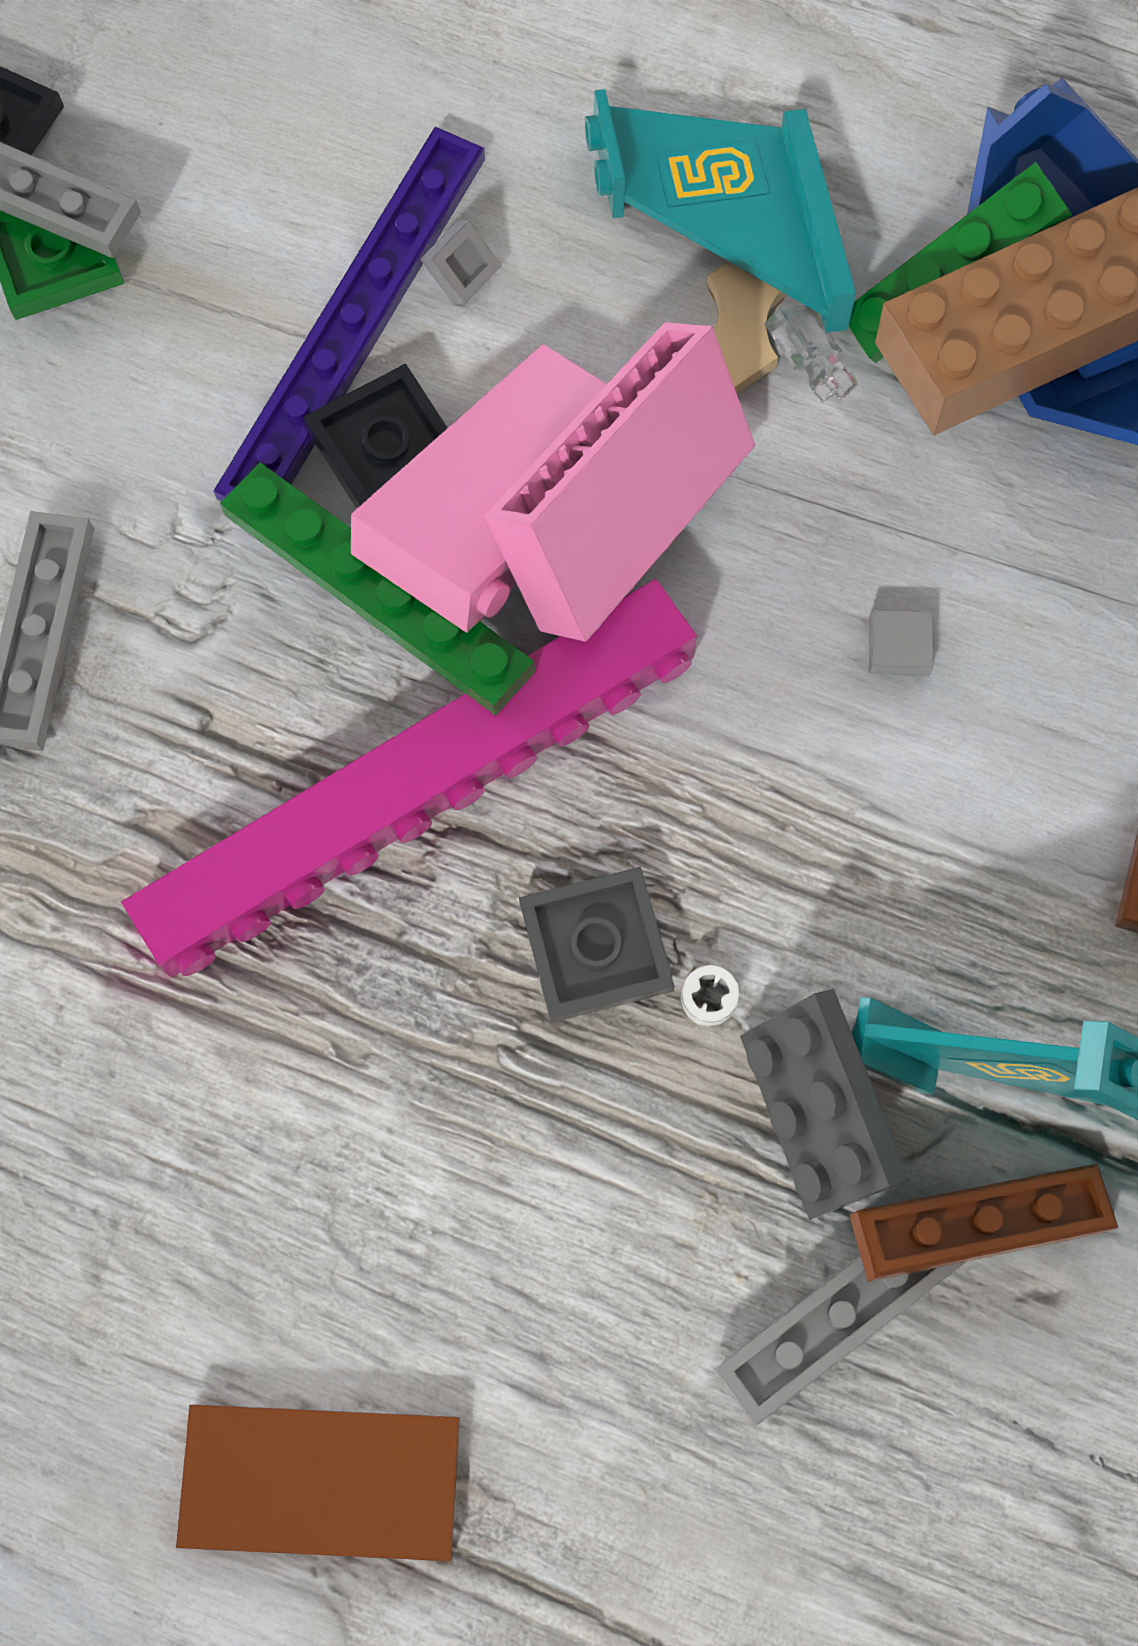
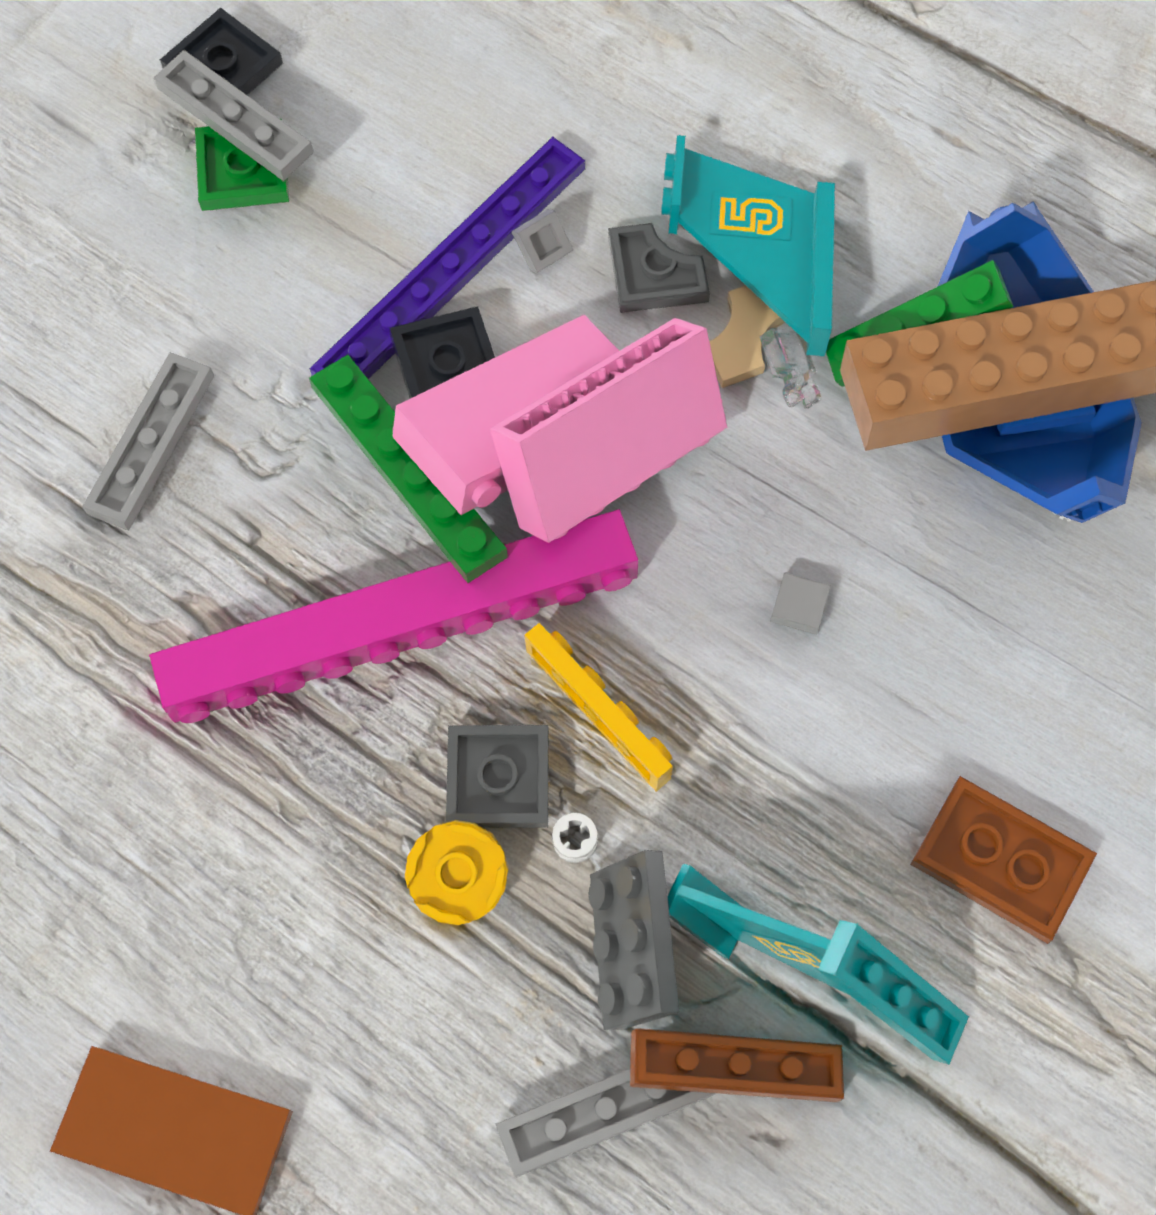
camera: 15 degrees right, 5 degrees down
(580, 1075) = (456, 872): none -> yellow tile
(607, 273) = (652, 273): none -> dark grey tile
(675, 814) = (613, 720): none -> yellow plate

